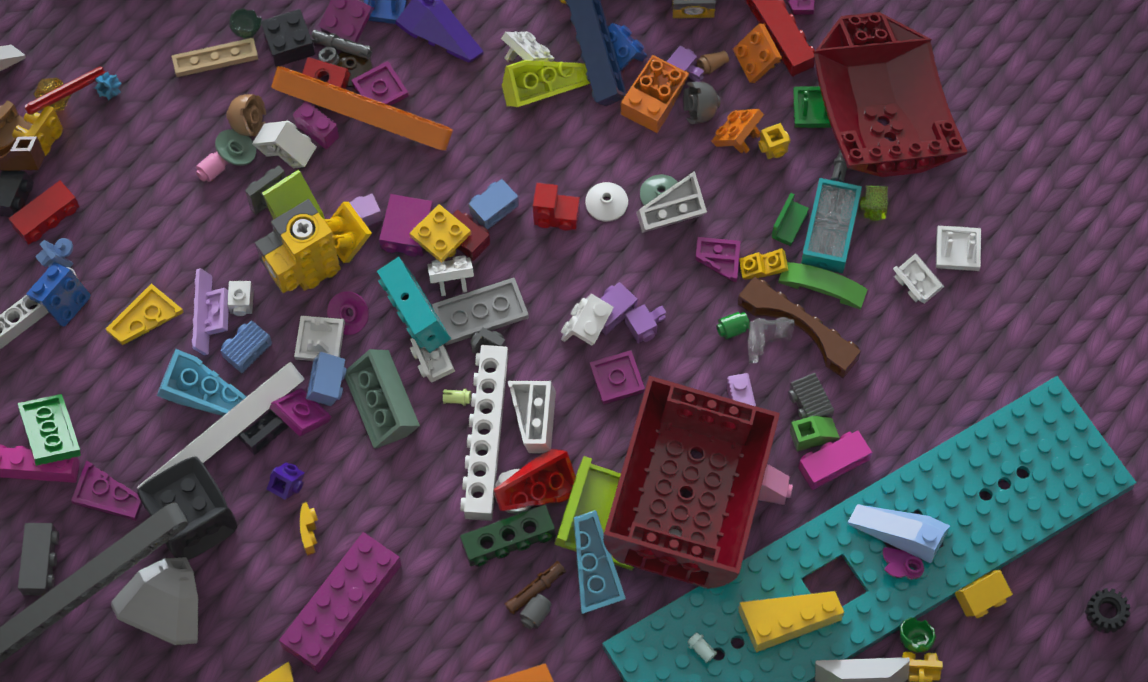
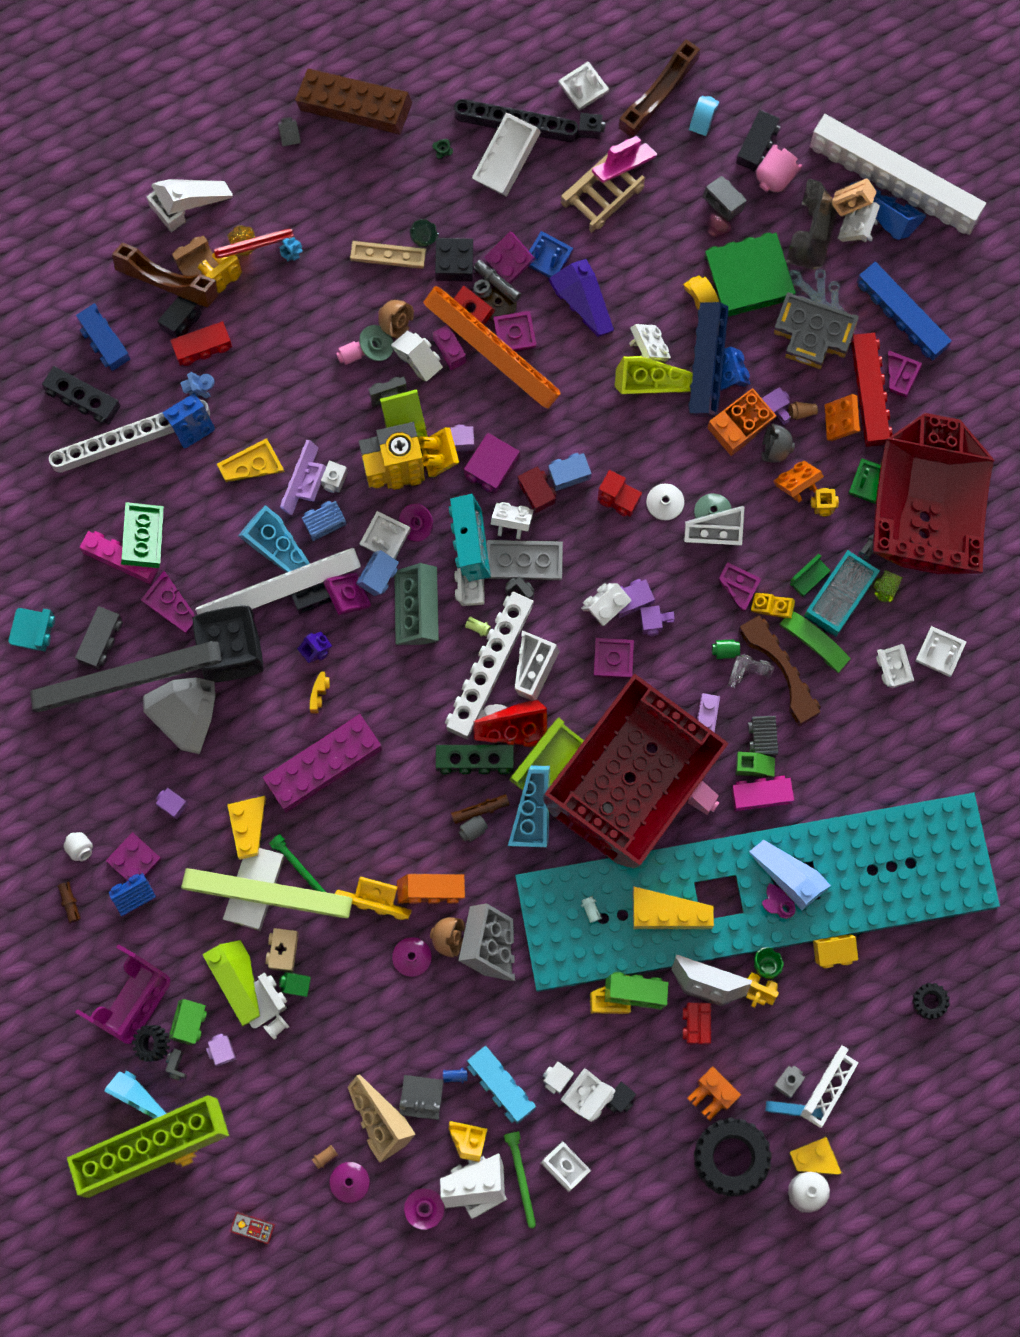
camera: 20 degrees right, 10 degrees up
(440, 233) = (515, 483): yellow plate -> none

